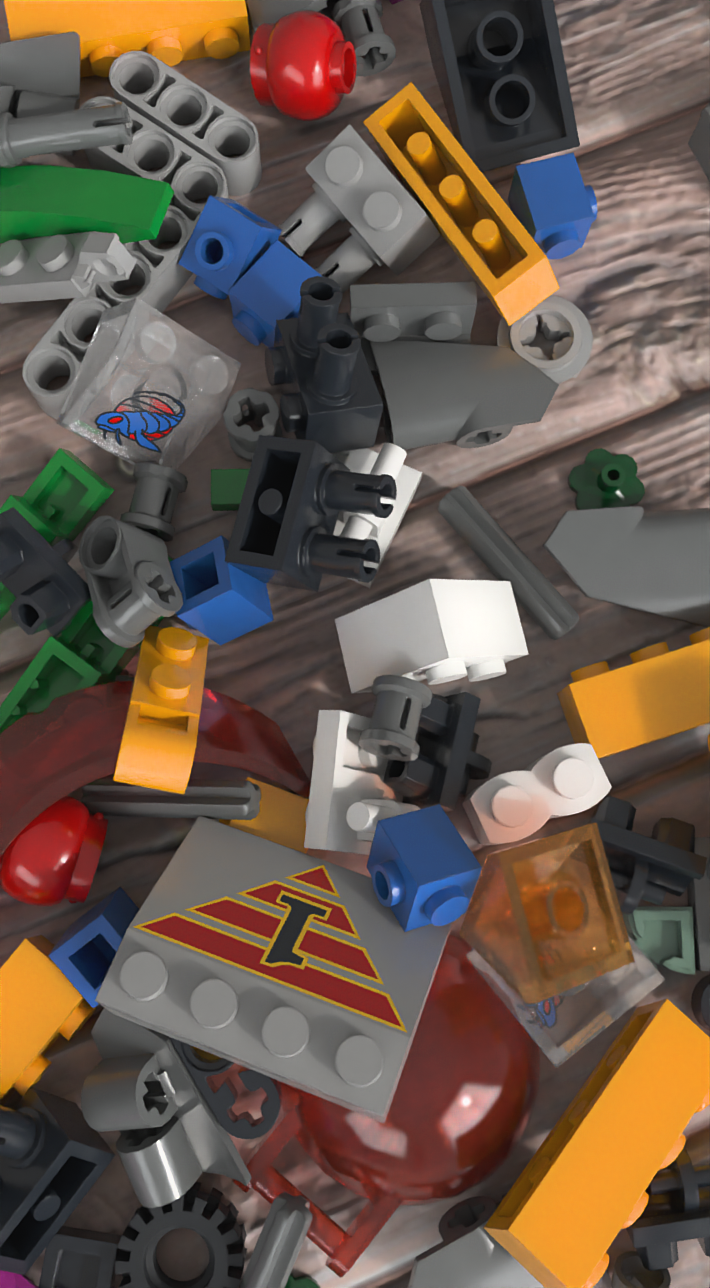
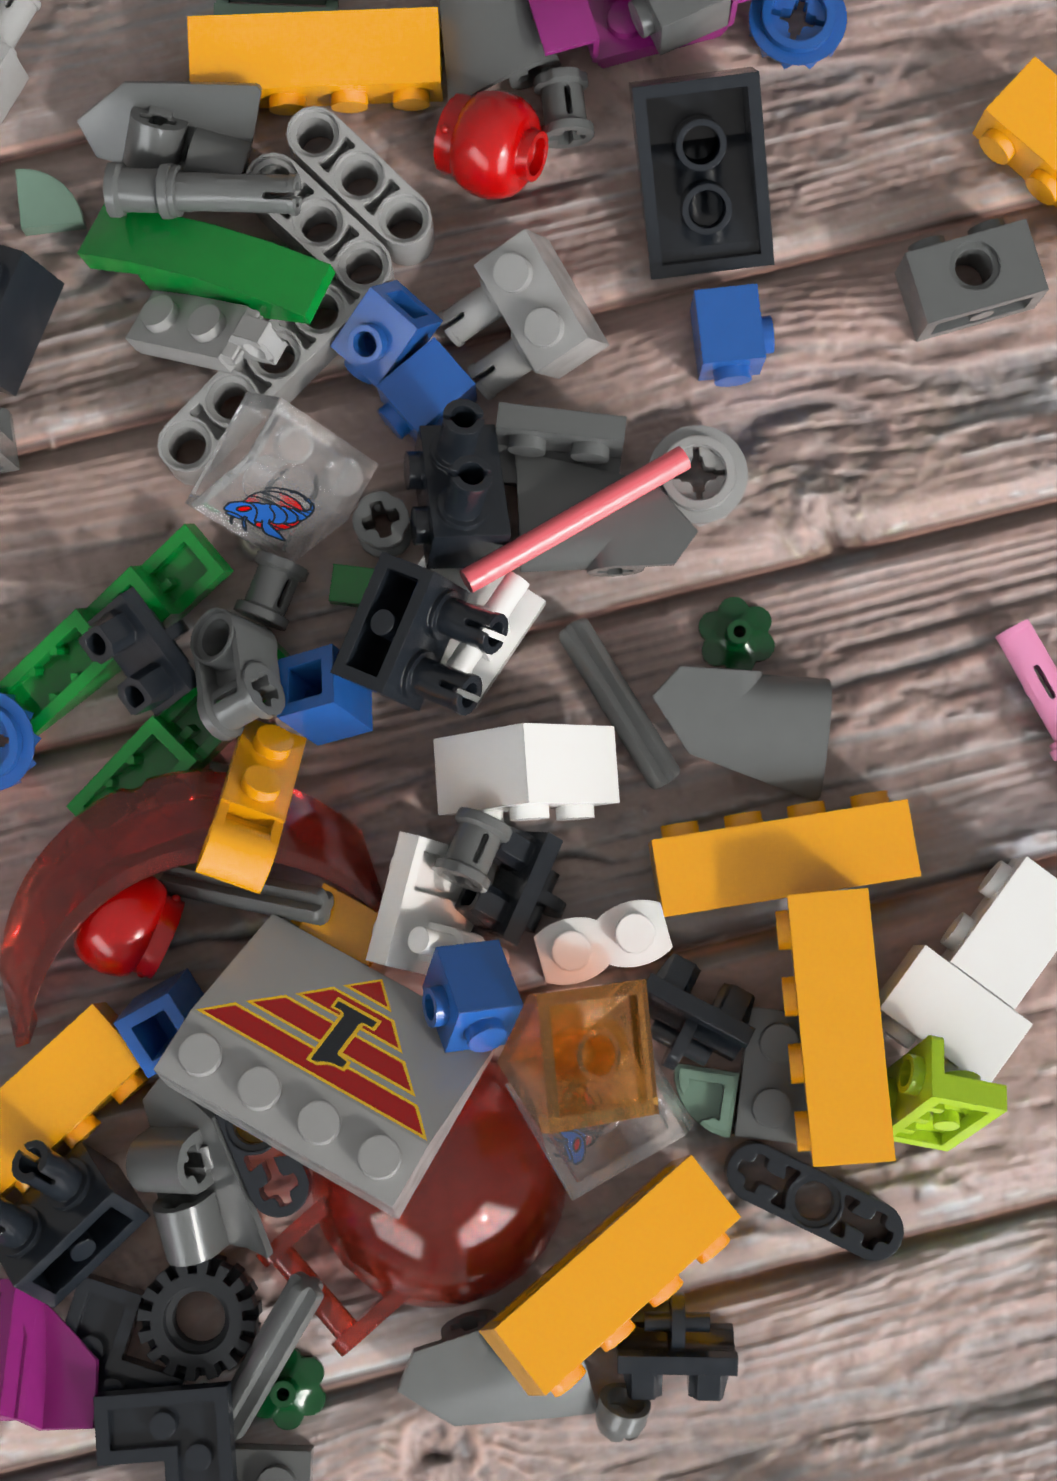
camera: 15 degrees right, 5 degrees up
(439, 387) = (575, 519): none -> coral bar
(462, 204) = (628, 324): light orange brick -> none

